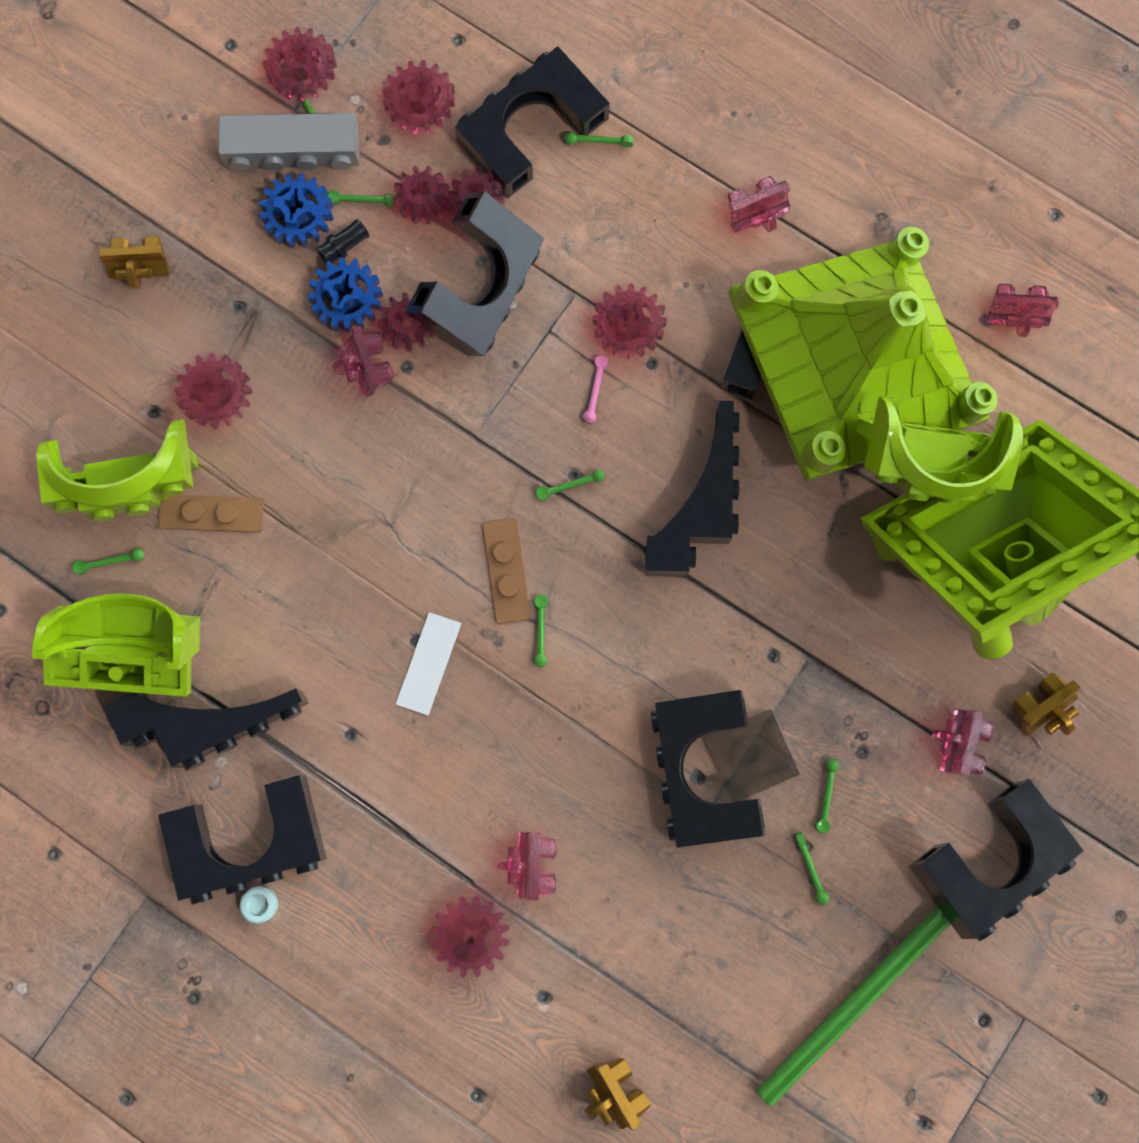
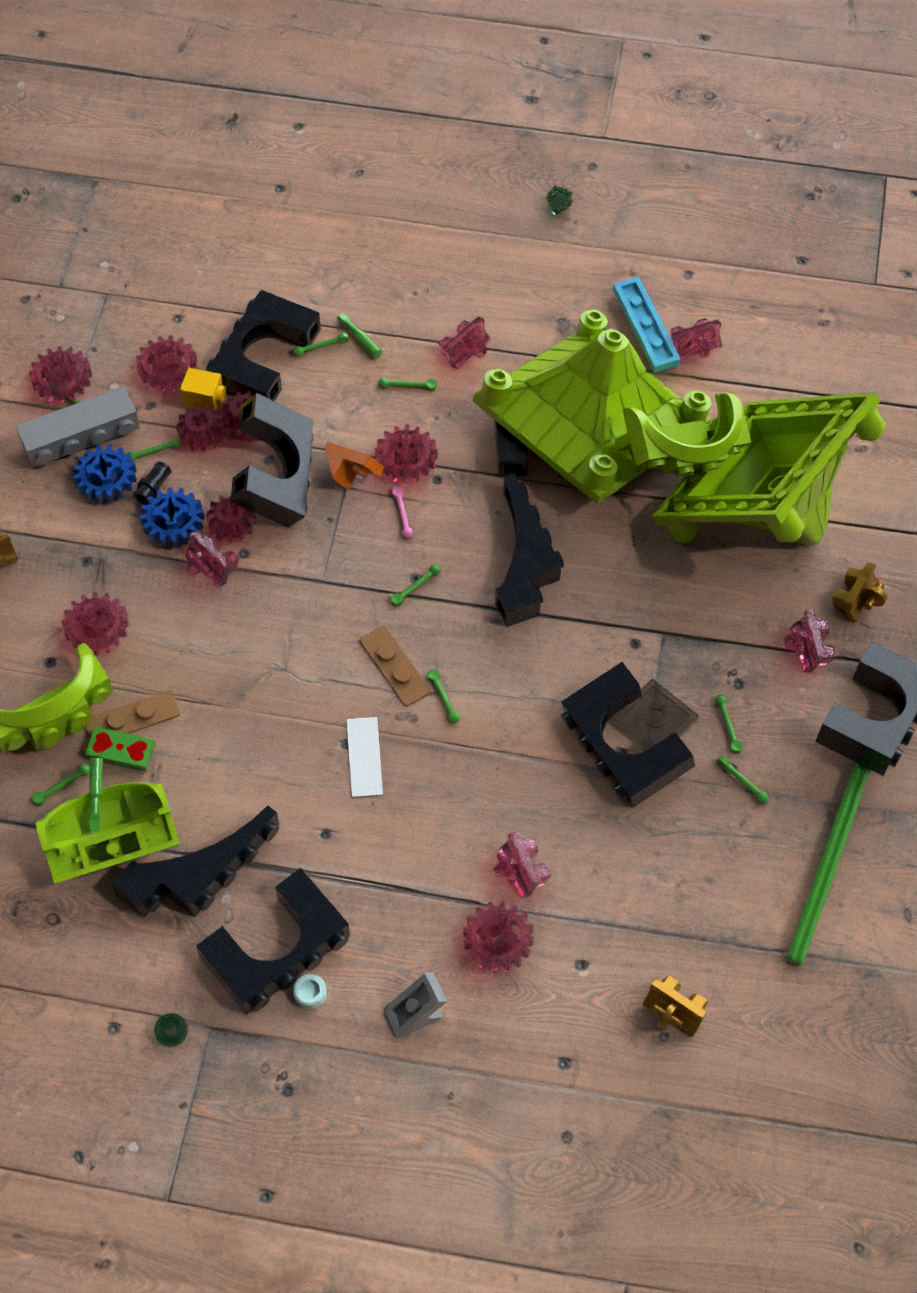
camera: 25 degrees left, 20 degrees down
(94, 888) = (167, 1021): none -> clear green plate
(125, 598) = (95, 791): none -> bright green piece
(182, 547) = (120, 748): none -> bright green tile
(353, 975) = (416, 1005): none -> light grey slope
(441, 149) = (202, 388): none -> yellow brick
(558, 309) = (347, 463): none -> orange slope
(647, 146) = (360, 336): none -> bright green piece
(697, 240) = (430, 384): none -> bright green hinge
(952, 57) = (559, 199): none -> clear green plate
(974, 265) = (646, 324): none -> medium azure plate

